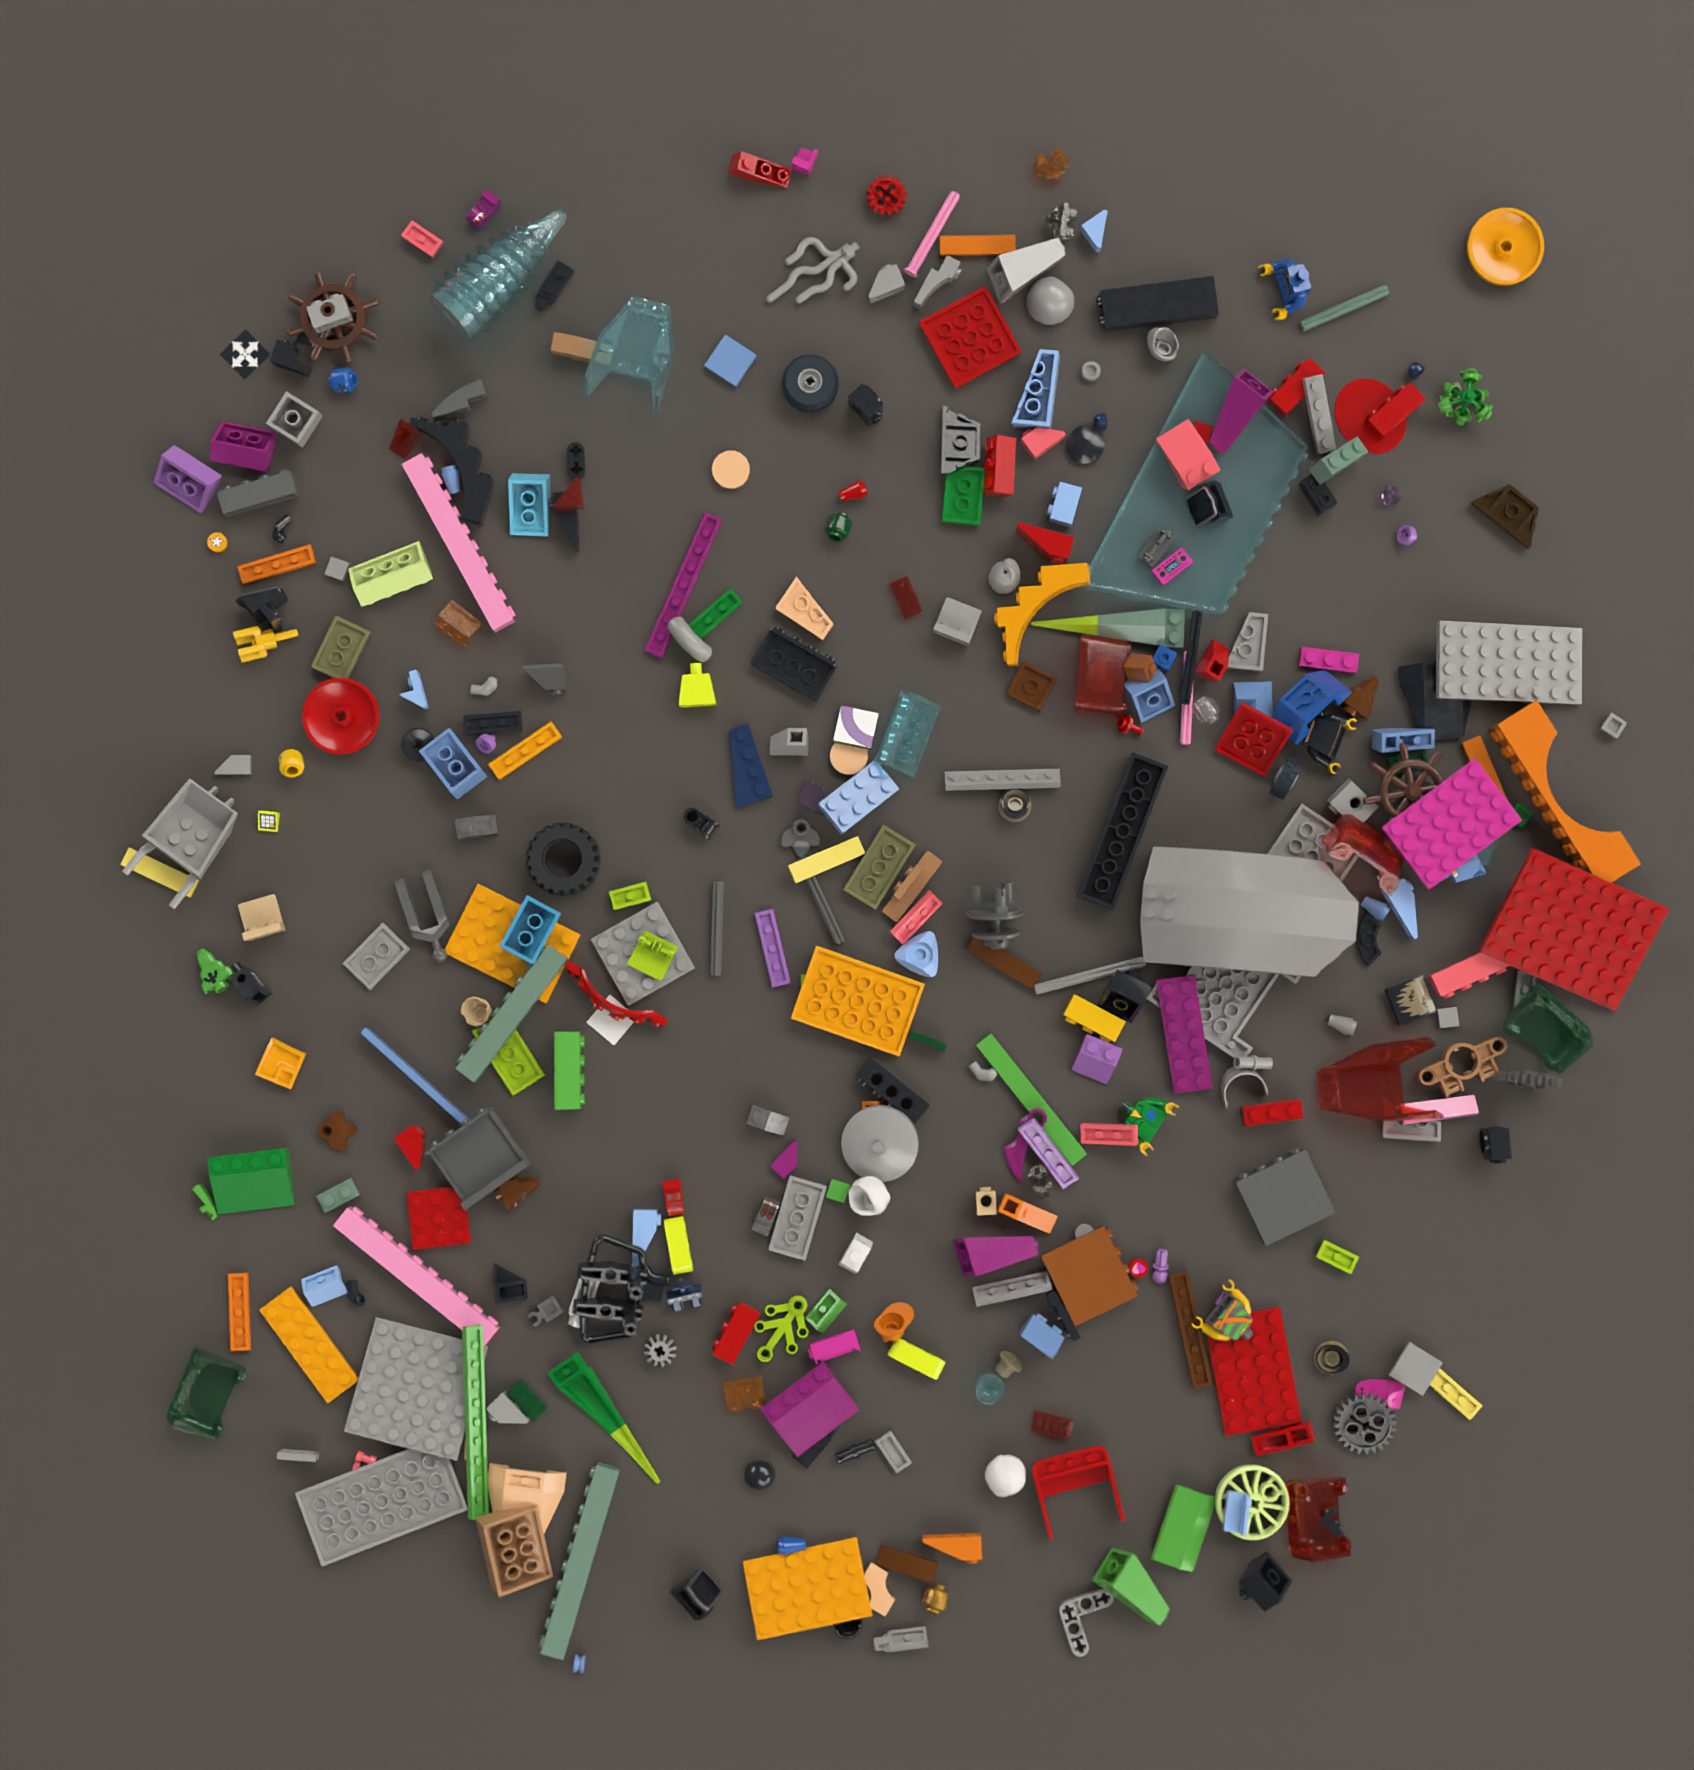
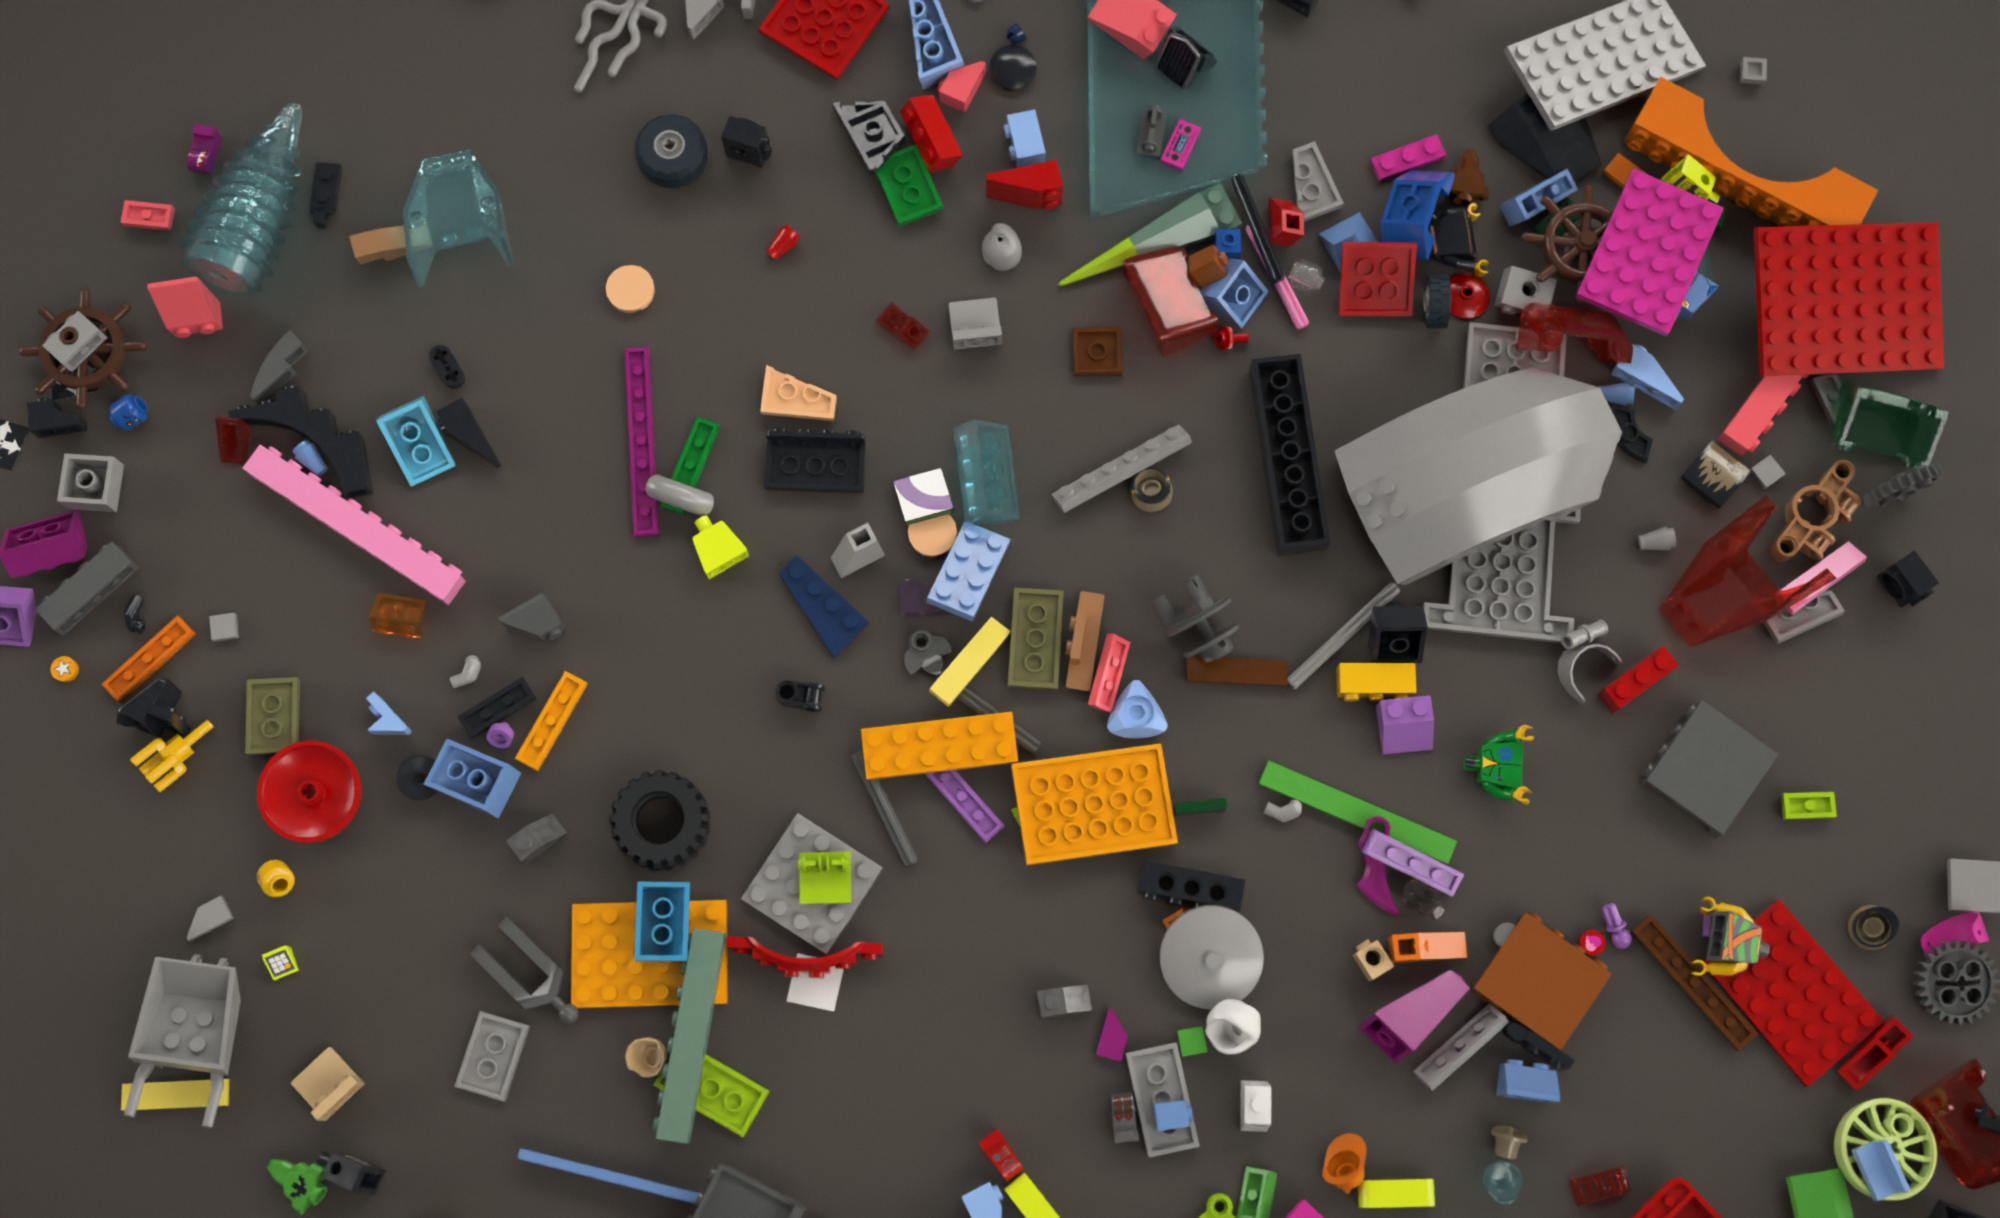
camera: 30 degrees left, 10 degrees down
(390, 574) = (290, 600): yellowish green slope -> none
(418, 327) = (186, 306): none -> coral slope
(568, 1070) = (794, 1068): bright green slope -> none
(572, 498) = (460, 406): clear red slope -> none
(630, 895) = (762, 823): lime plate -> none
(730, 361) = (568, 174): medium blue tile -> none
(775, 907) = (939, 745): none -> light orange plate
(797, 1232) = (1172, 1115): none -> medium blue brick
(838, 527) = (785, 288): dark green head -> none
(1015, 619) = (1061, 220): light orange arch -> none
(1109, 1134) = (1470, 802): coral plate -> none
(1184, 1033) = (1489, 643): magenta plate -> none
(1312, 791) = (1468, 306): none -> red dish
(1514, 787) = (1693, 178): none -> neon yellow torso

